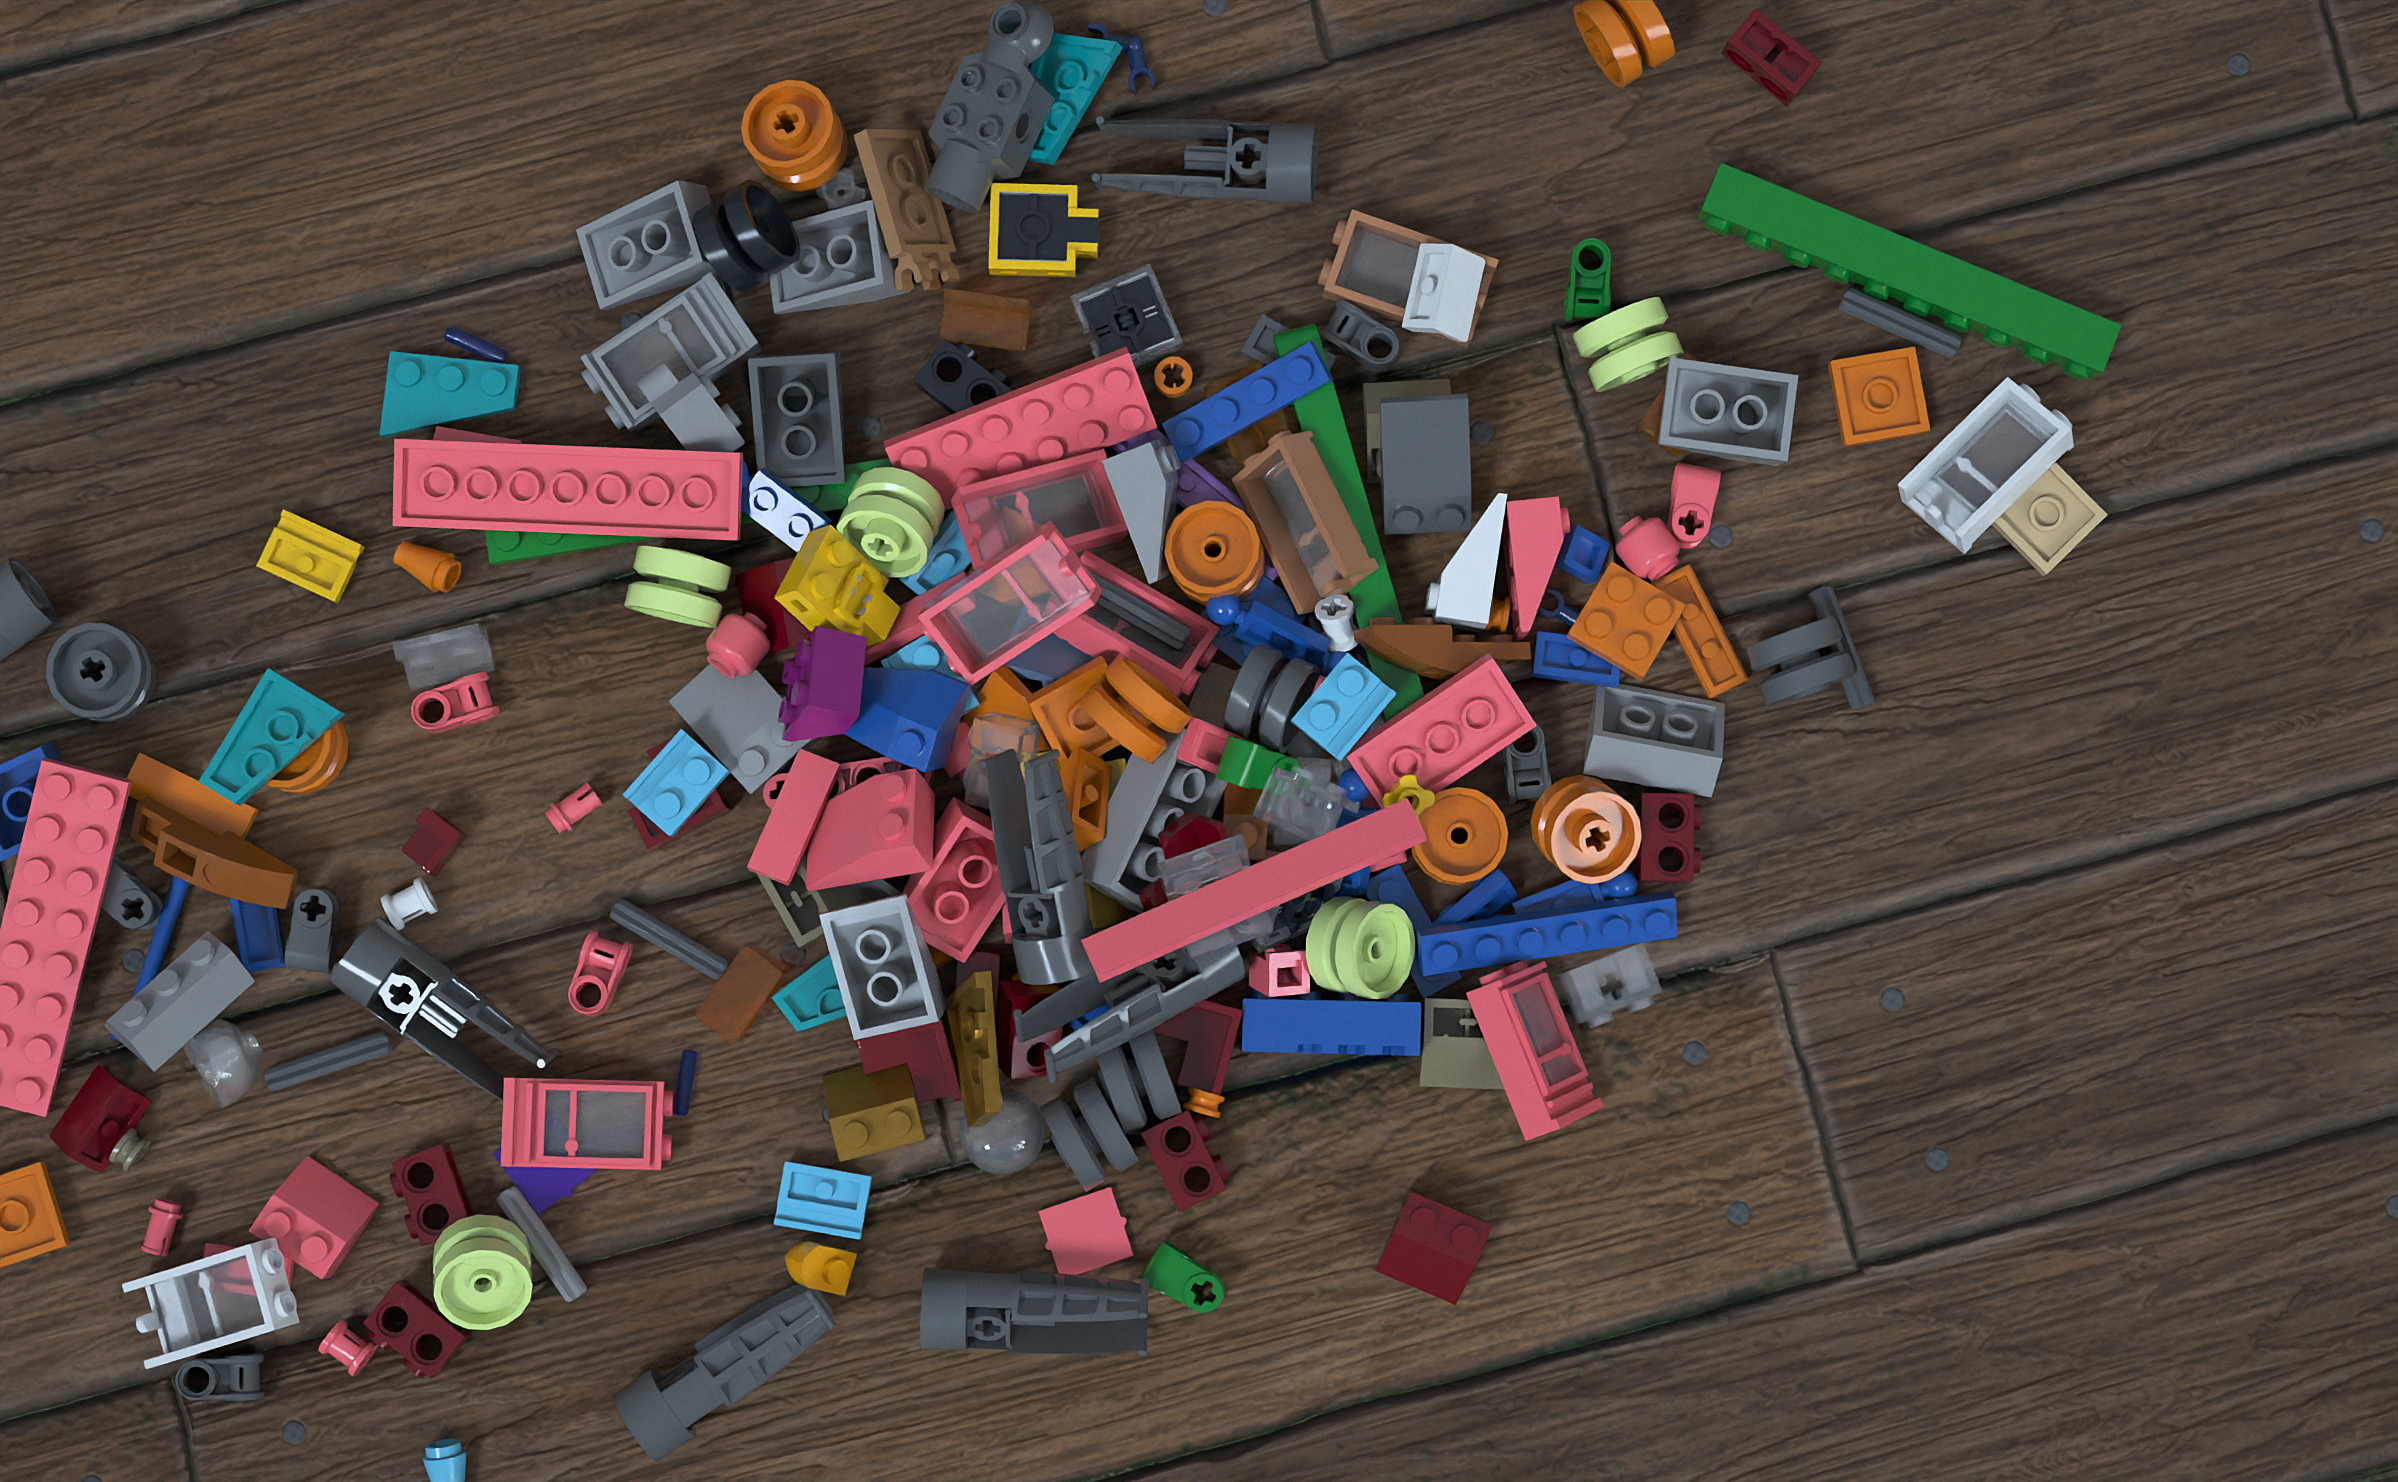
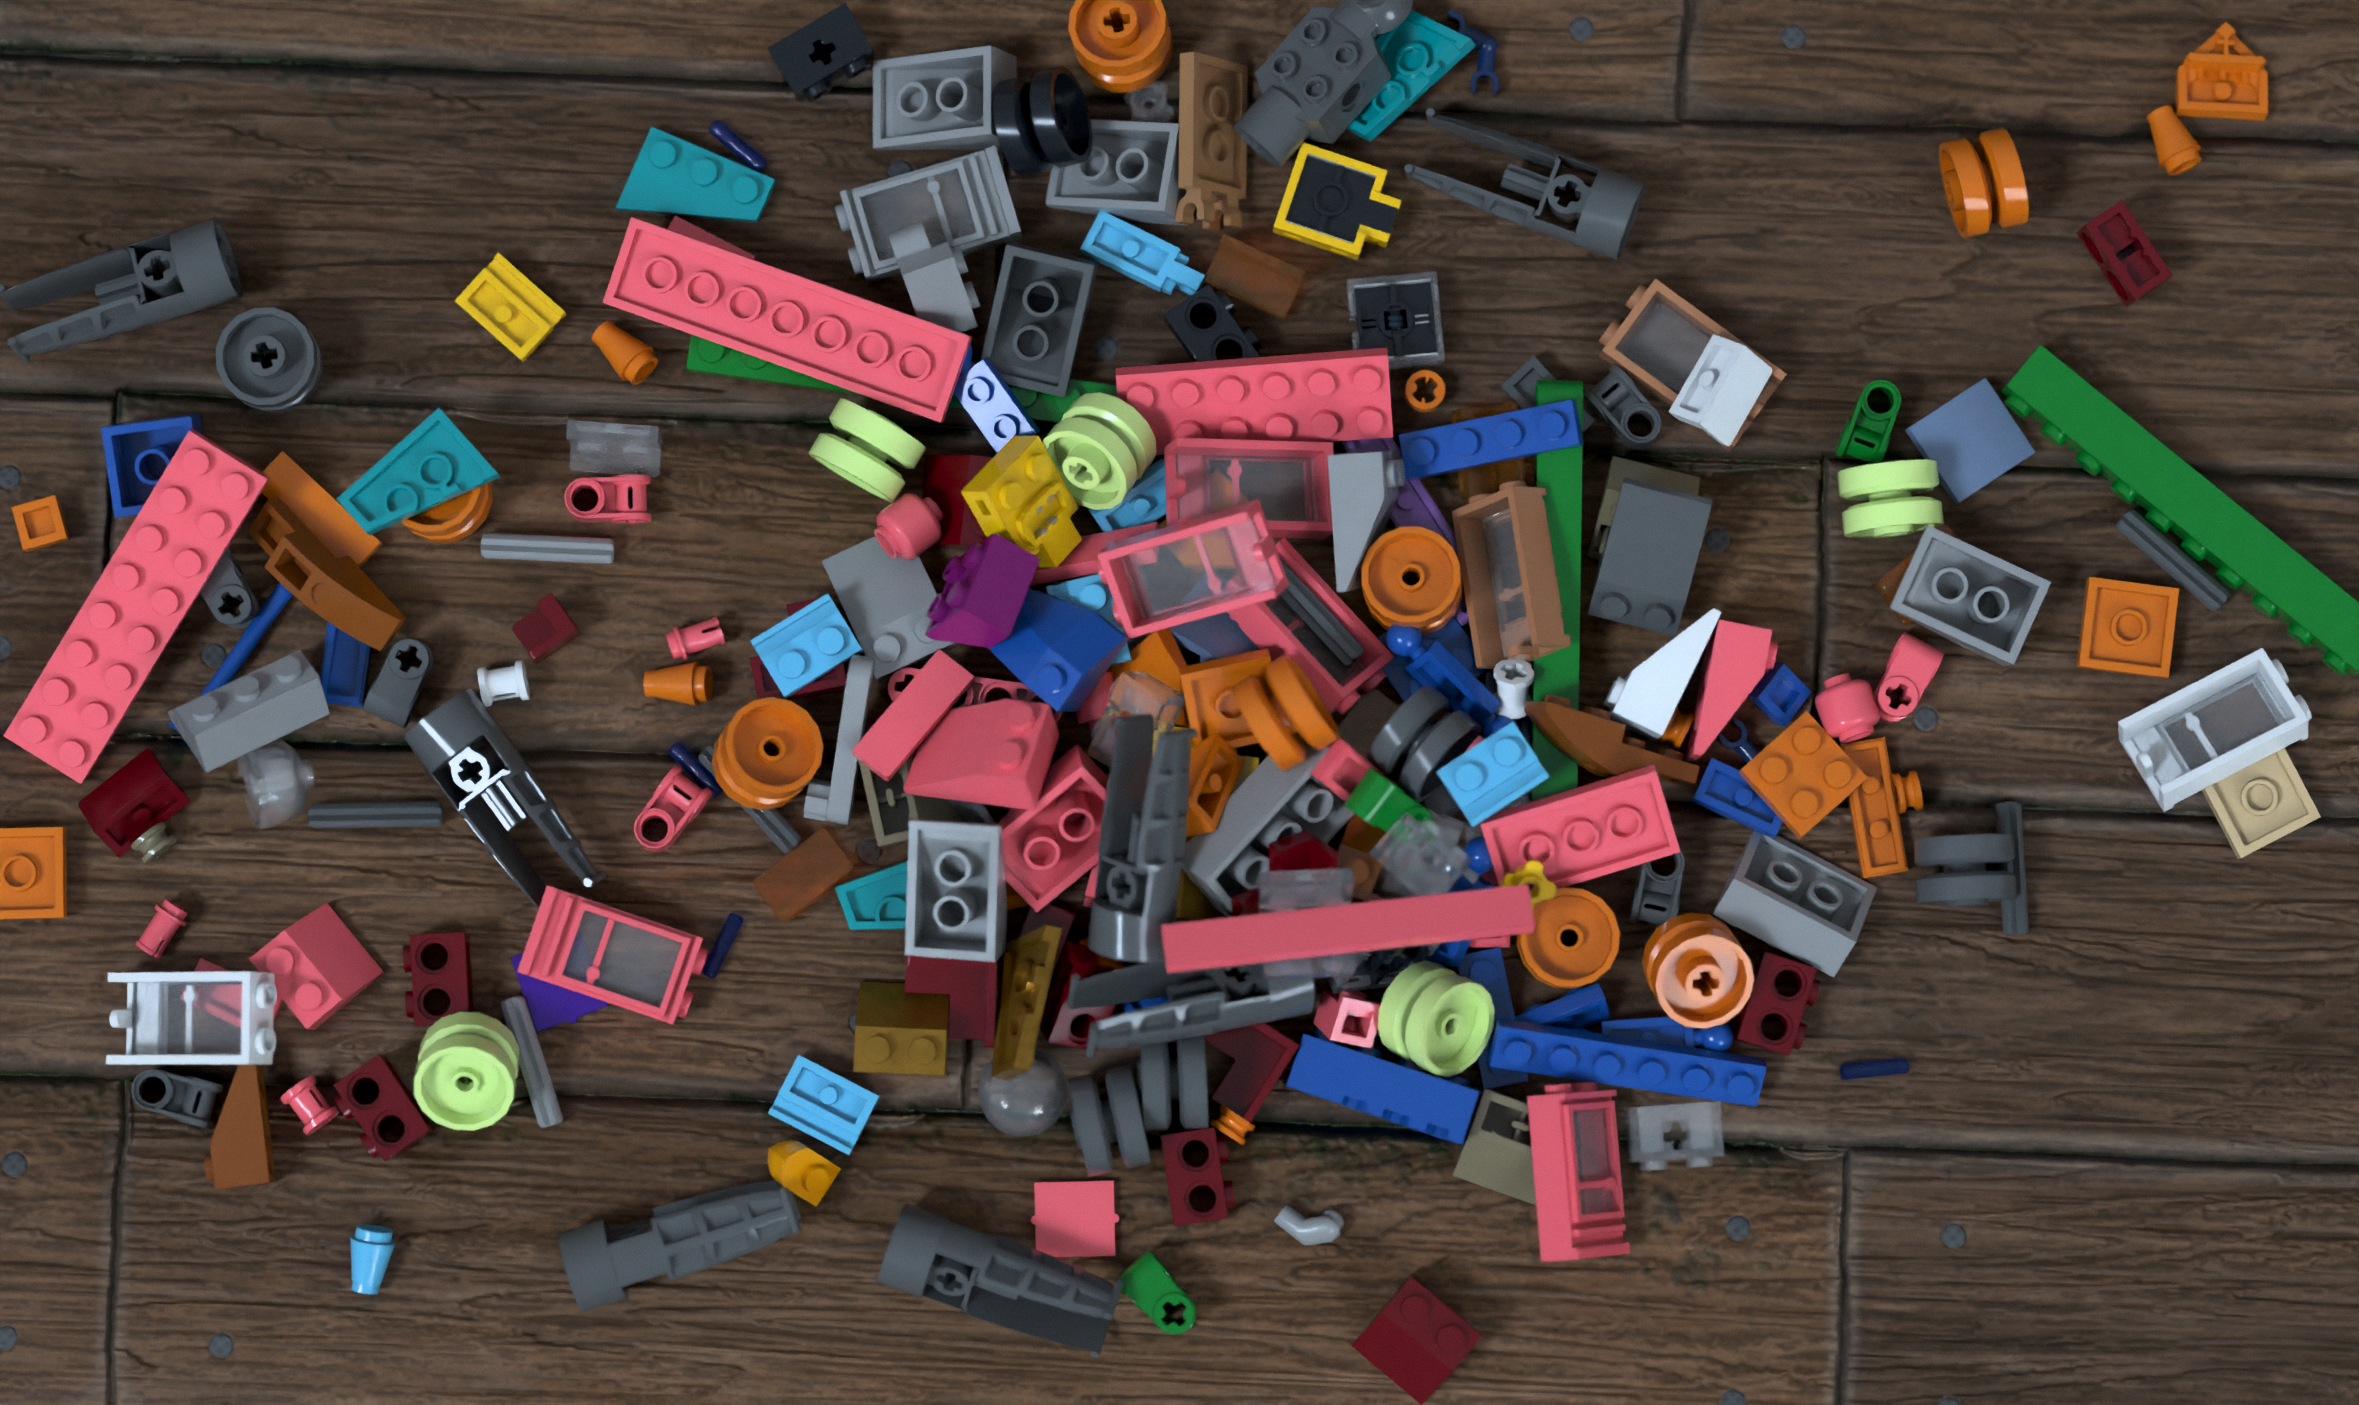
camera: 20 degrees right, 0 degrees up
(294, 1397) = (242, 1137): none -> dark orange slope
(412, 767) = (547, 548): none -> light grey axle
(538, 217) = (832, 32): none -> black brick
(574, 853) = (680, 683): none -> orange cone
(610, 927) = (695, 768): none -> clear blue piece
(677, 869) = (792, 749): none -> orange wheel
(746, 916) = (834, 799): none -> light grey beam
(875, 333) = (1140, 256): none -> medium azure hinge
(1305, 1176) = (1310, 1230): none -> light grey arm
(1684, 270) = (1970, 440): none -> sand blue slope
(1726, 607) = (1907, 791): none -> orange bush
(1772, 869) = (1873, 1068): none -> clear blue piece

